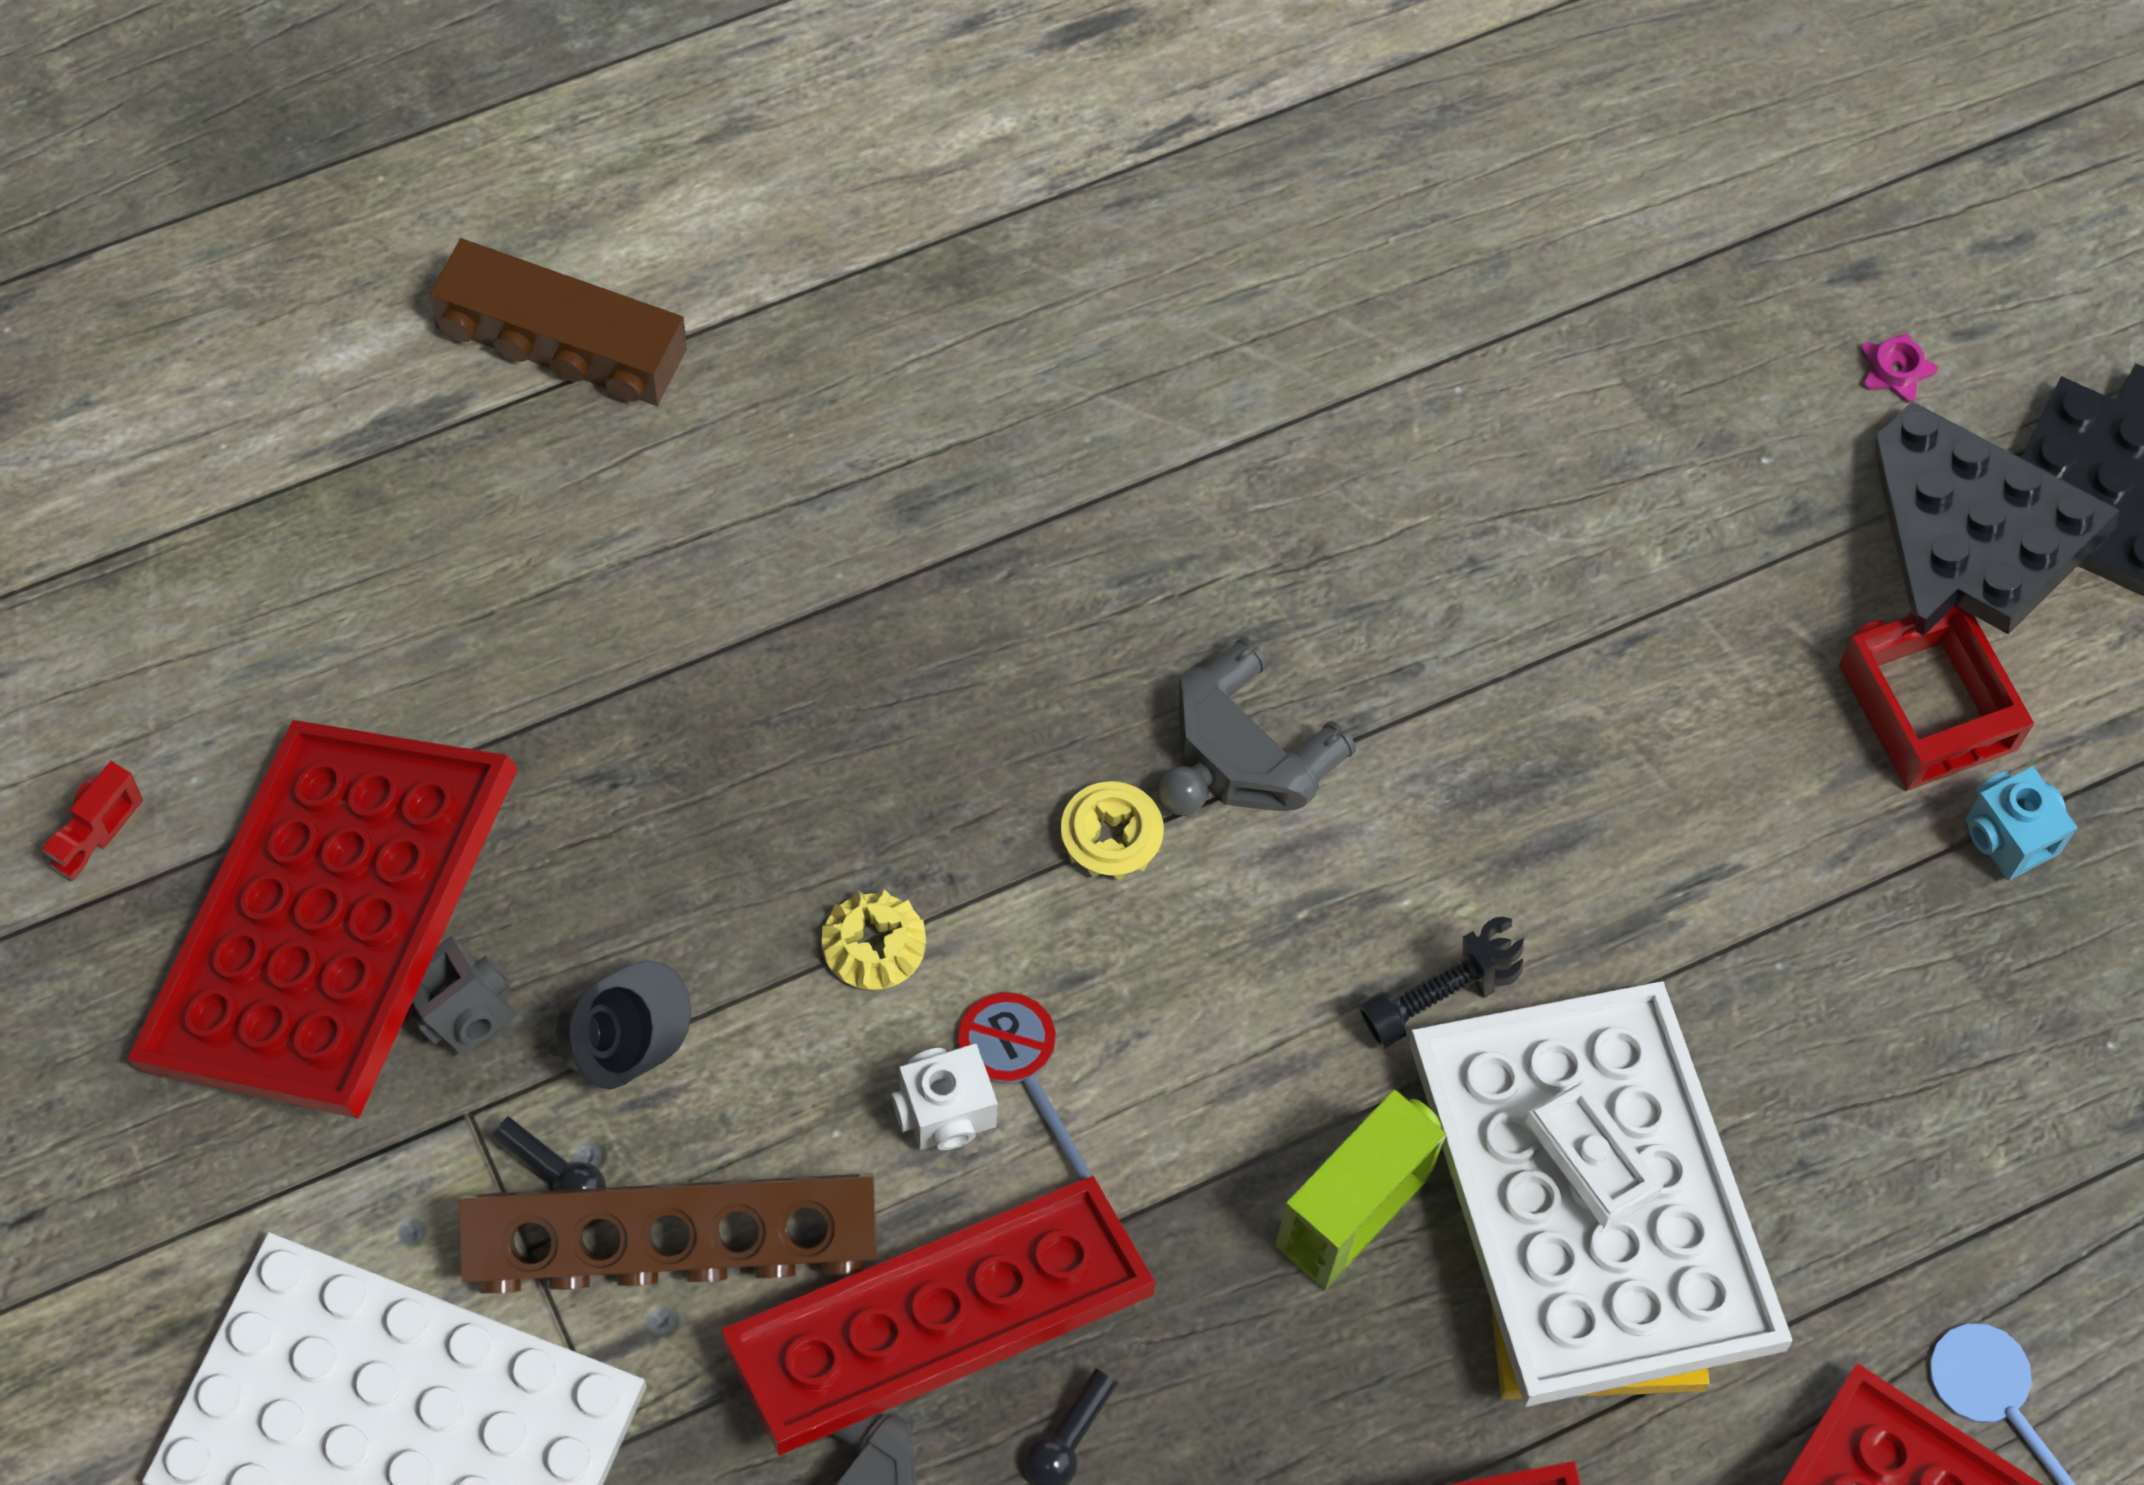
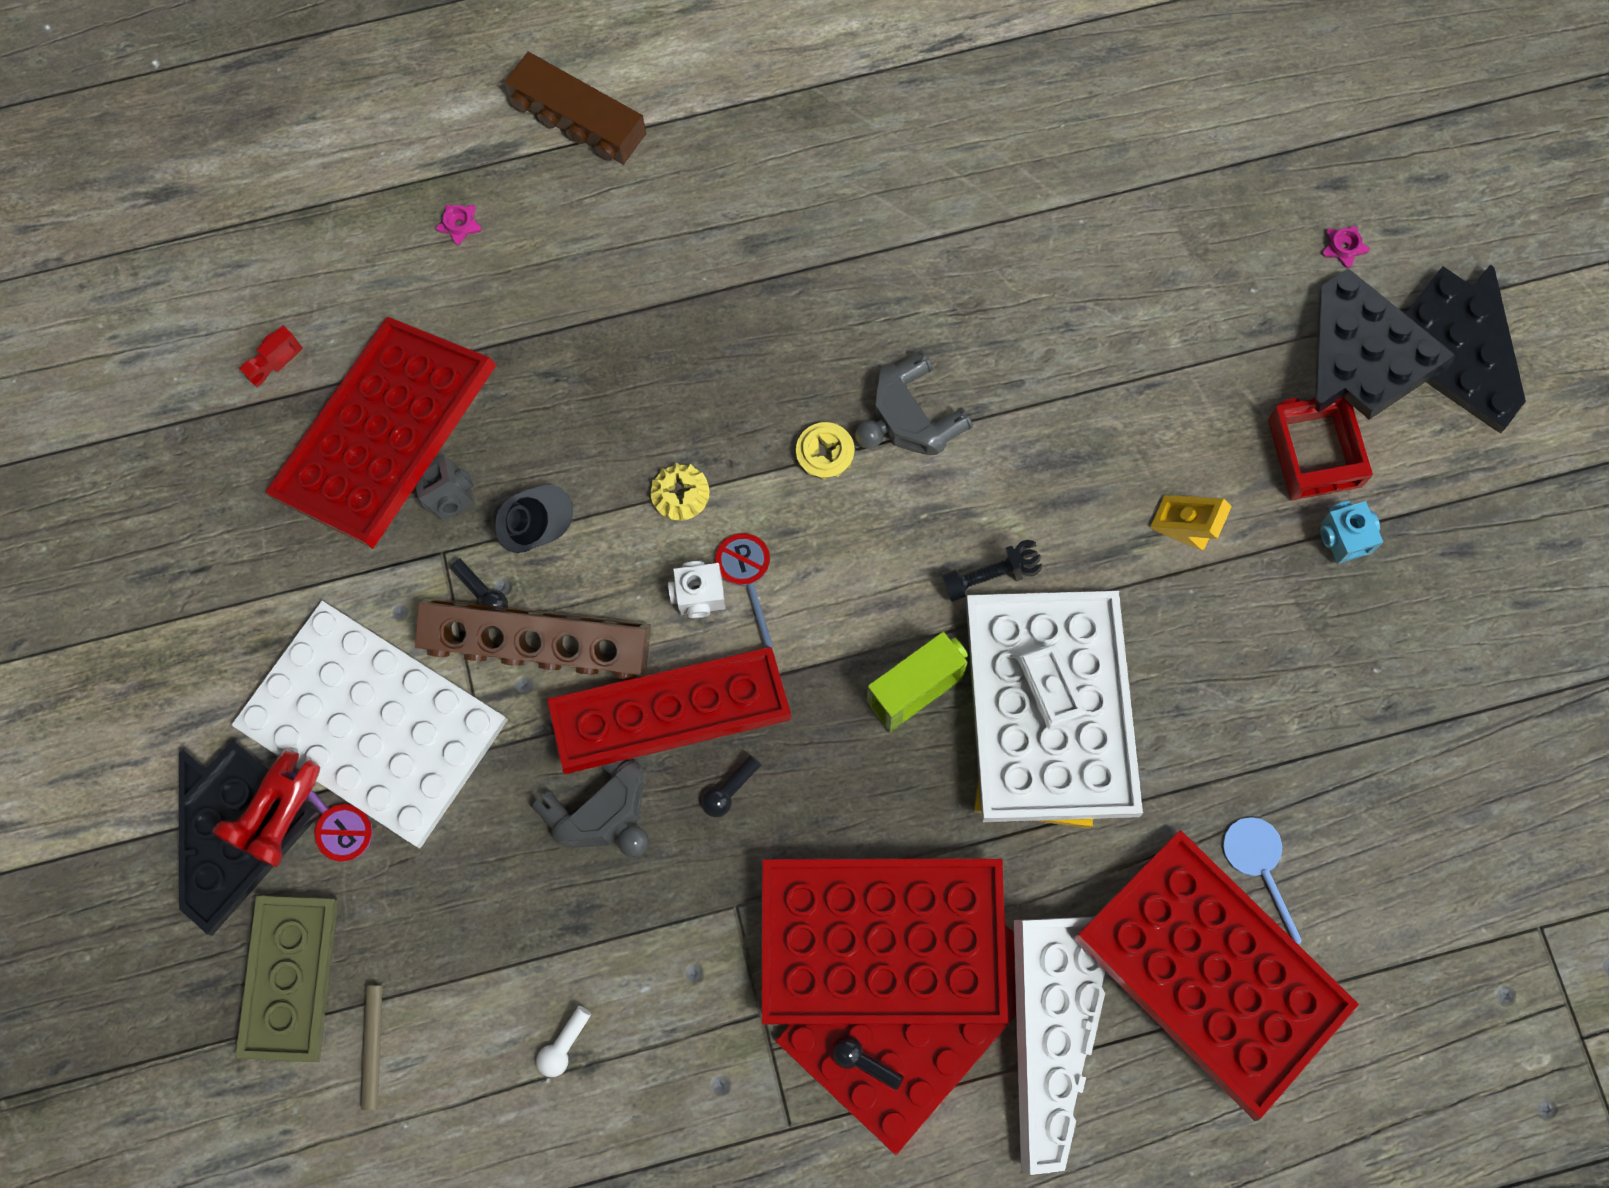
camera: 20 degrees right, 10 degrees up
(384, 527) = (459, 213): none -> dark pink plate
(1755, 844) = (1191, 519): none -> yellow slope

